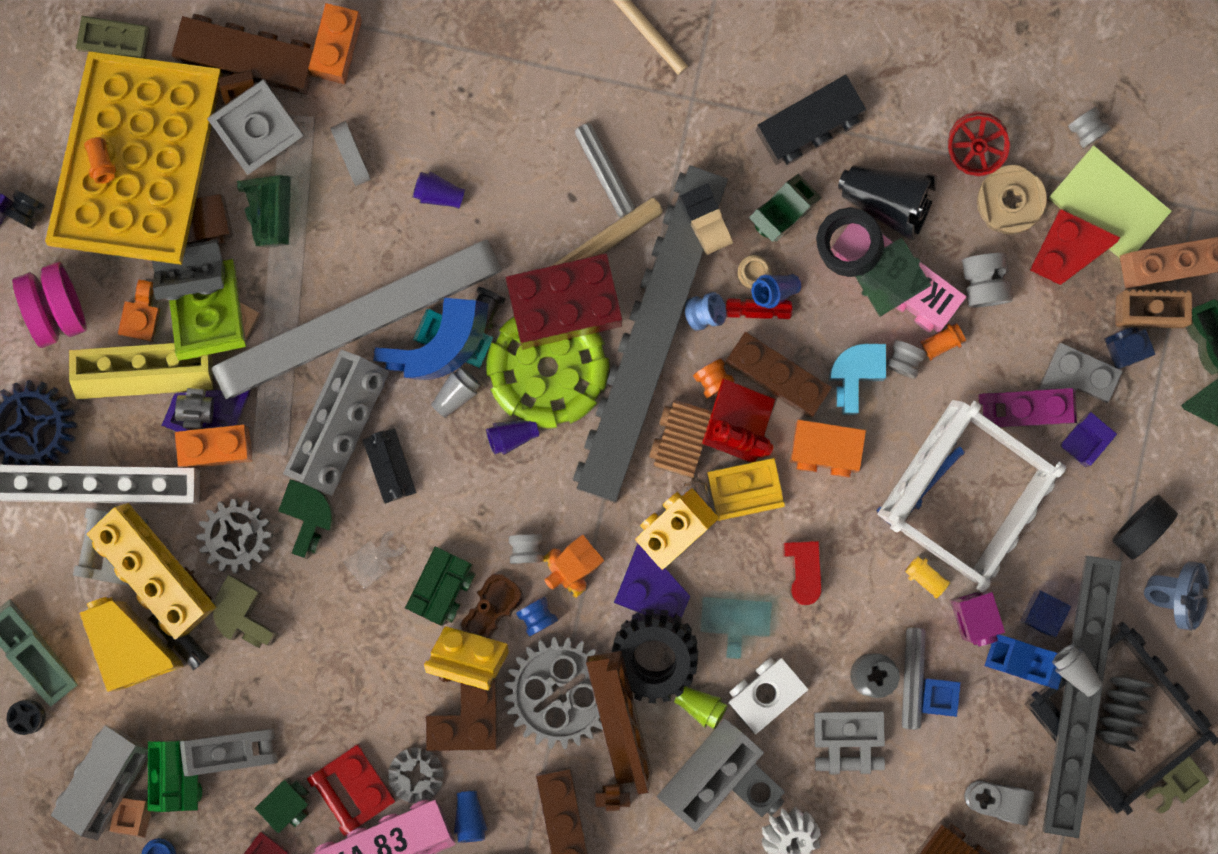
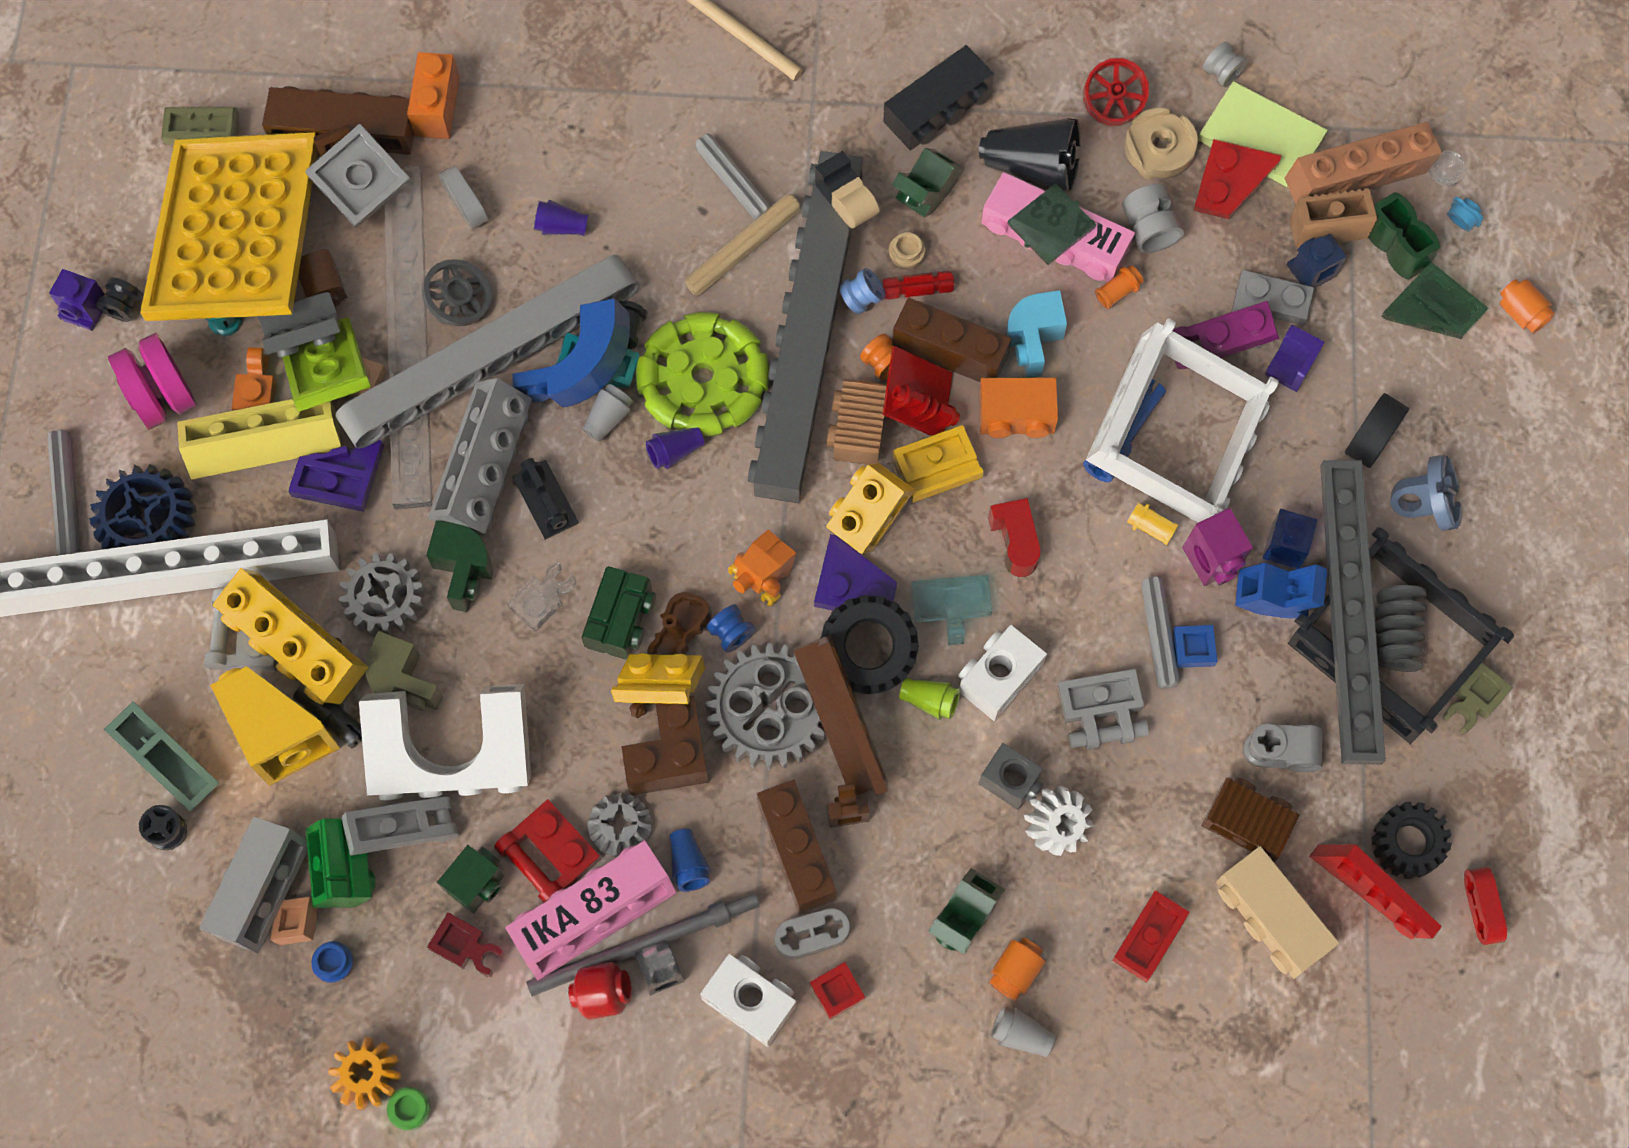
camera: 10 degrees left, 15 degrees down
(101, 167) = (195, 231): orange pin -> none
(194, 408) = (321, 461): flat silver gear -> none
(213, 446) = (347, 495): orange brick -> none
(234, 701) = (398, 768): none -> white arch
(268, 209) = (381, 255): clear green wing -> none
(333, 252) = (456, 292): none -> dark grey wheel
(526, 549) = (707, 559): light grey wheel -> none
(564, 301) = (709, 296): dark red brick -> none
(710, 774) = (954, 765): light grey brick -> none
(774, 289) = (930, 257): blue cone -> none
(835, 221) = (993, 170): black tyre -> none
(885, 683) = (1118, 626): dark grey piece -> none
(905, 359) = (1083, 308): light grey wheel -> none
(1077, 669) = (1342, 575): light grey cone -> none

